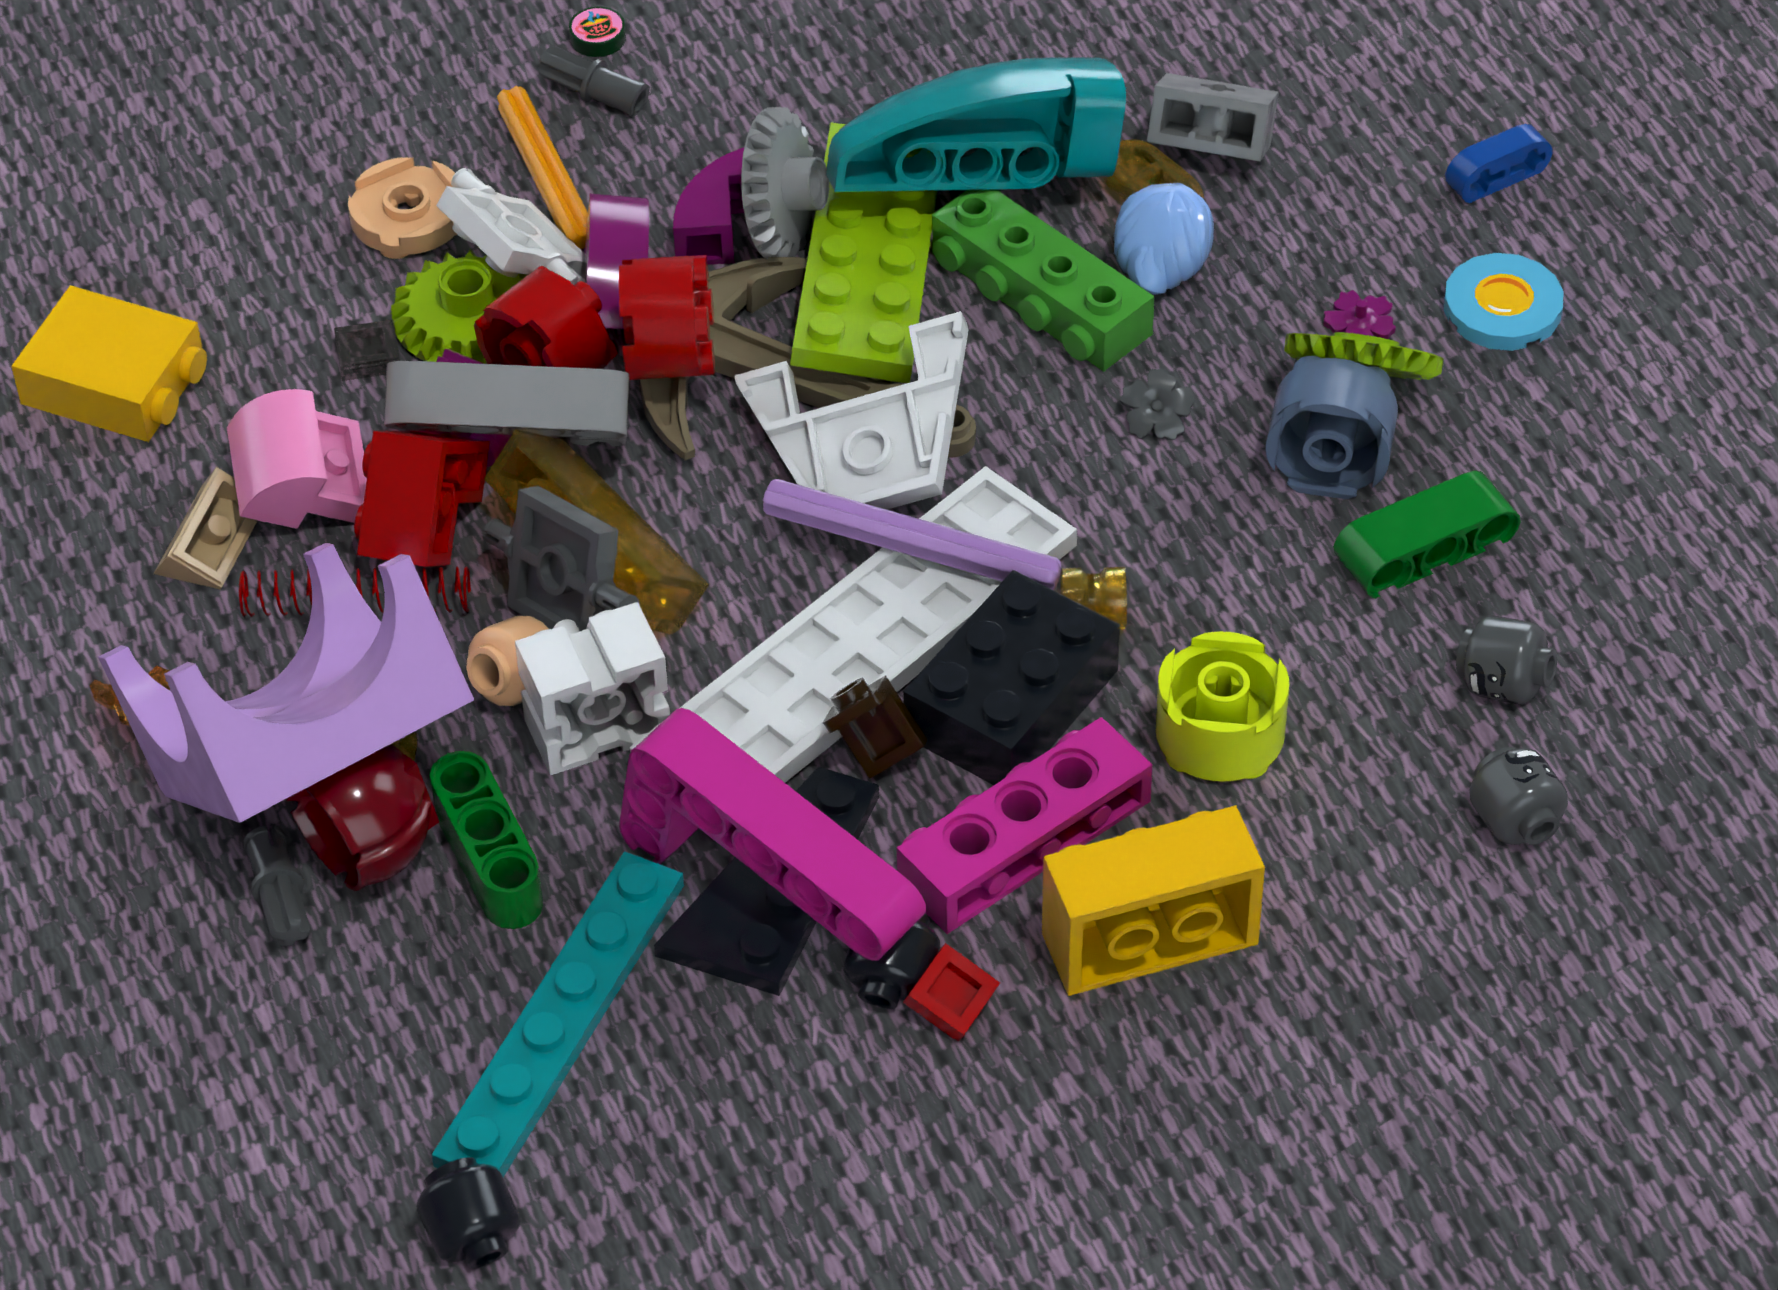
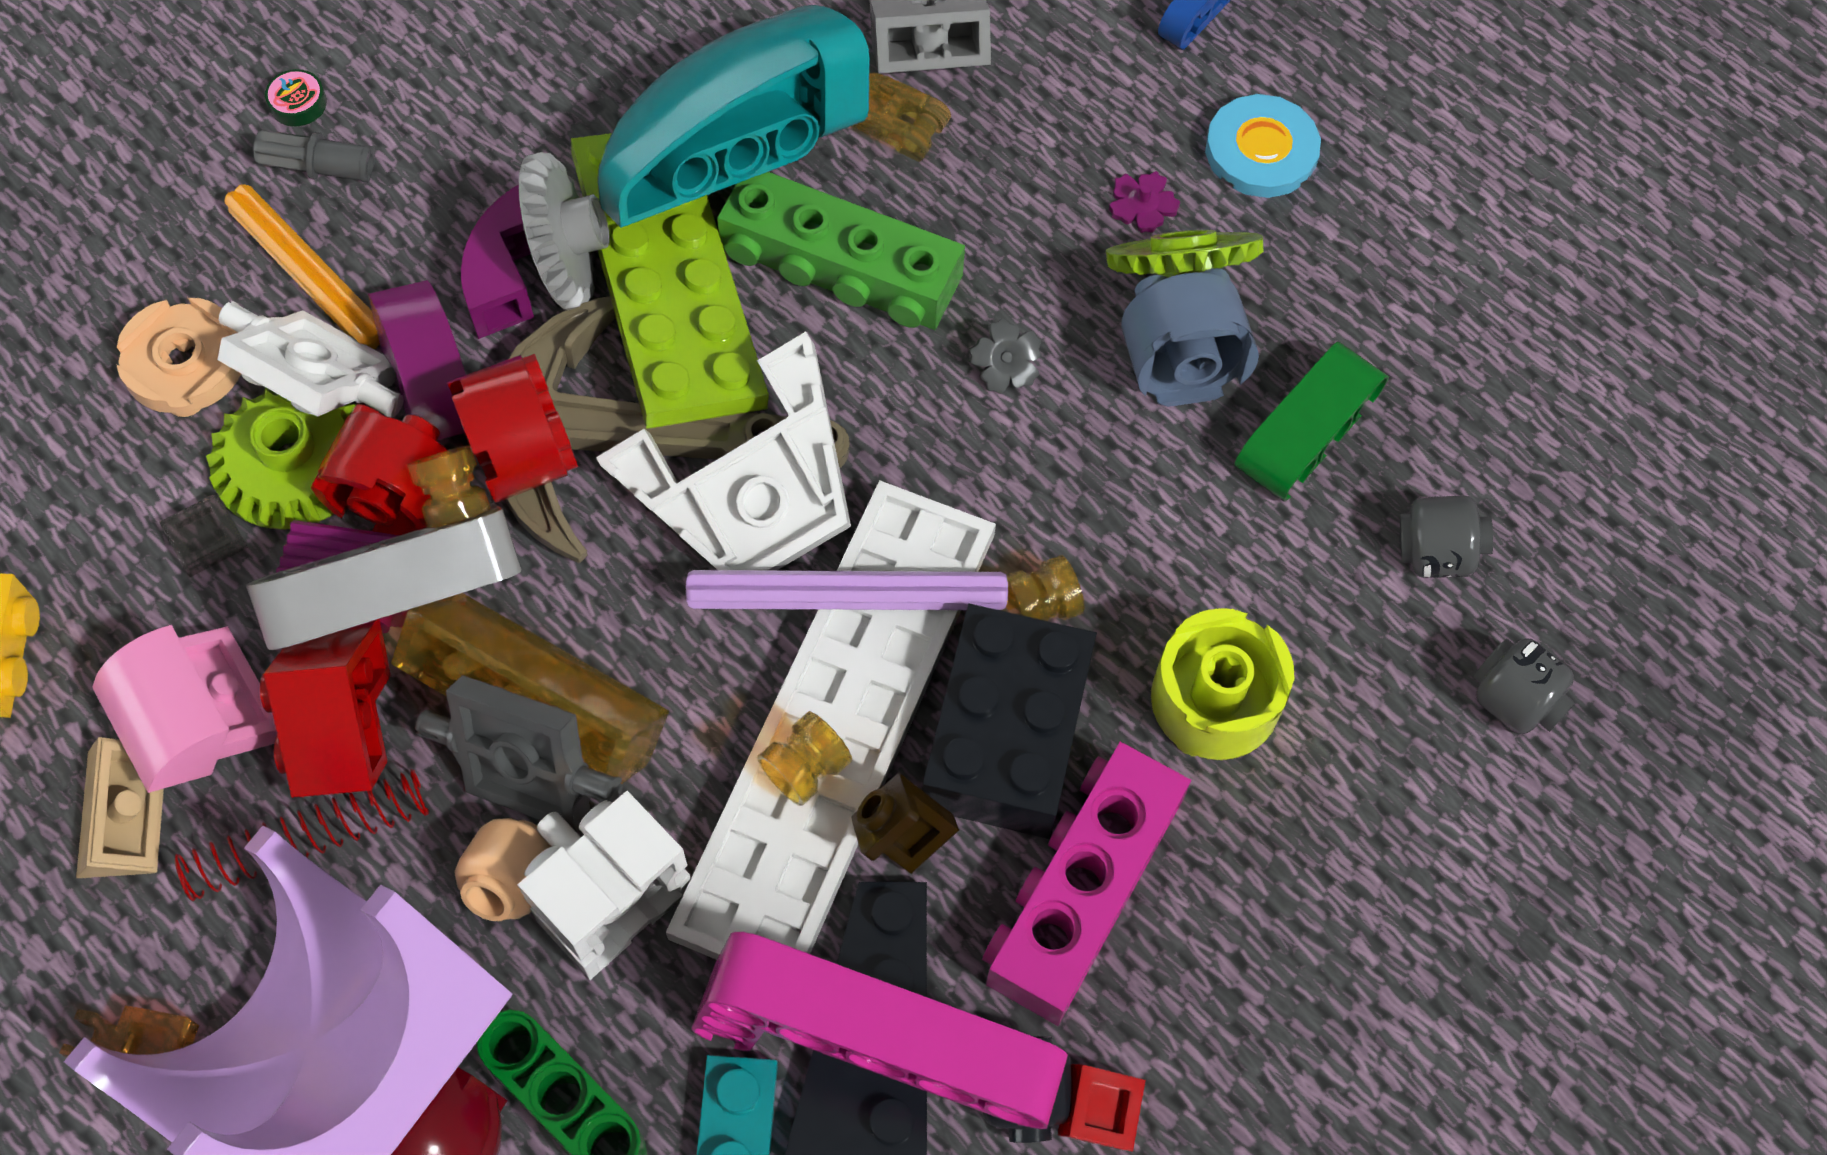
camera: 25 degrees left, 15 degrees up
(590, 336) = (448, 481): none -> clear yellow wheel
(808, 645) = (809, 754): none -> clear yellow wheel
(1152, 899) = (1259, 937): yellow brick -> none
(1163, 236) = (939, 172): light blue hair -> none

